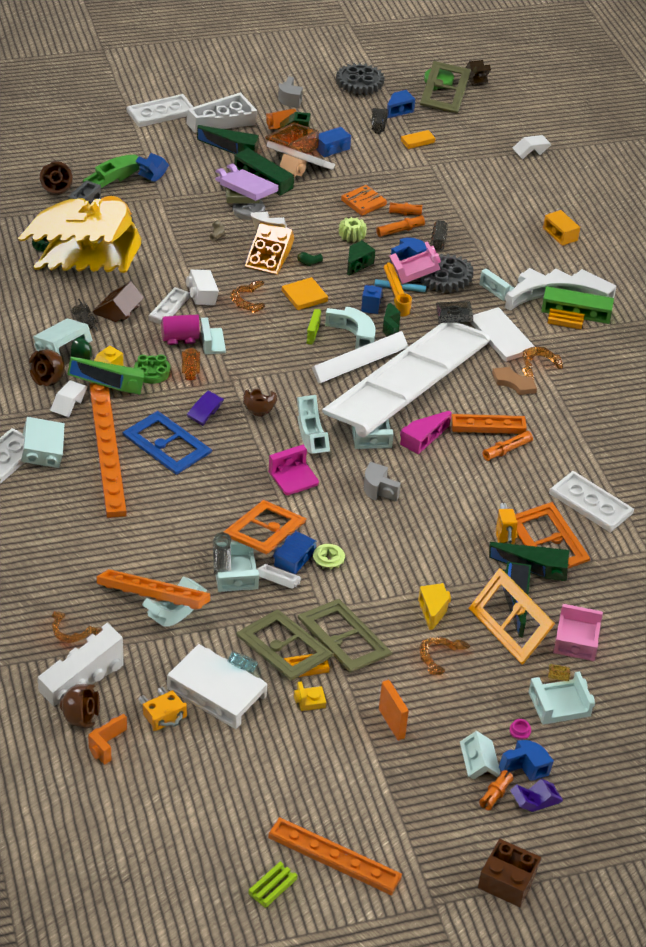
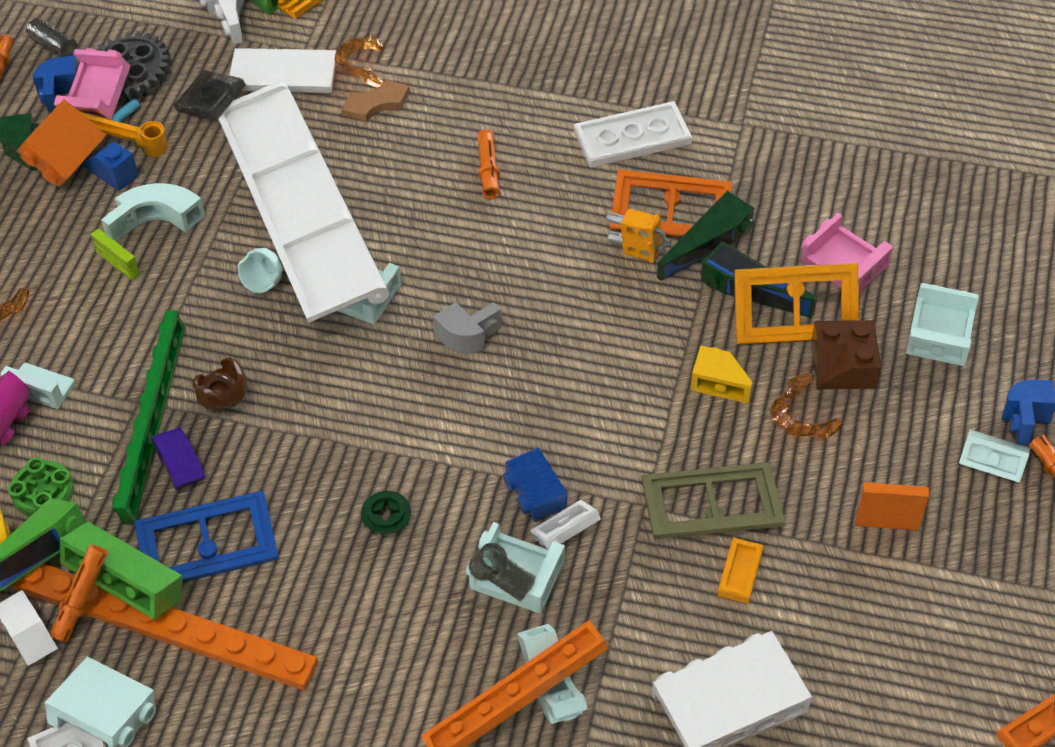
camera: 55 degrees left, 10 degrees up
(88, 406) = (73, 605): none -> orange pin
(122, 414) = (126, 571): none -> bright green brick
(190, 363) = (82, 432): clear orange hips -> none
(223, 385) = (147, 424): none -> green plate
(235, 497) = (374, 508): none -> dark green gear
(242, 661) = (713, 642): clear light blue beam -> none
(269, 653) = (701, 604): olive door -> none
(279, 535) = (489, 478): orange door -> none
(291, 471) = (382, 415): dark pink bracket -> none
(304, 293) = (35, 234): light orange tile -> none
(309, 698) = (803, 593): yellow bracket -> none
(310, 427) = (317, 355): light aqua arch -> none
(334, 552) = (554, 440): yellowish green gear -> none
(346, 382) = (260, 270): none -> light aqua hair
(359, 357) = (215, 234): white tile -> none
(363, 269) = (60, 143): none -> orange brick
(391, 320) = (183, 174): dark green slope -> none
(424, 431) = (408, 240): dark pink slope -> none
(488, 423) = (436, 163): orange plate -> none
(494, 284) = (192, 30): light aqua panel -> none
(497, 657) = (845, 354): none -> reddish brown slope
(520, 729) = (969, 390): dark pink plate -> none
(559, 672) = (899, 306): clear yellow tile -> none

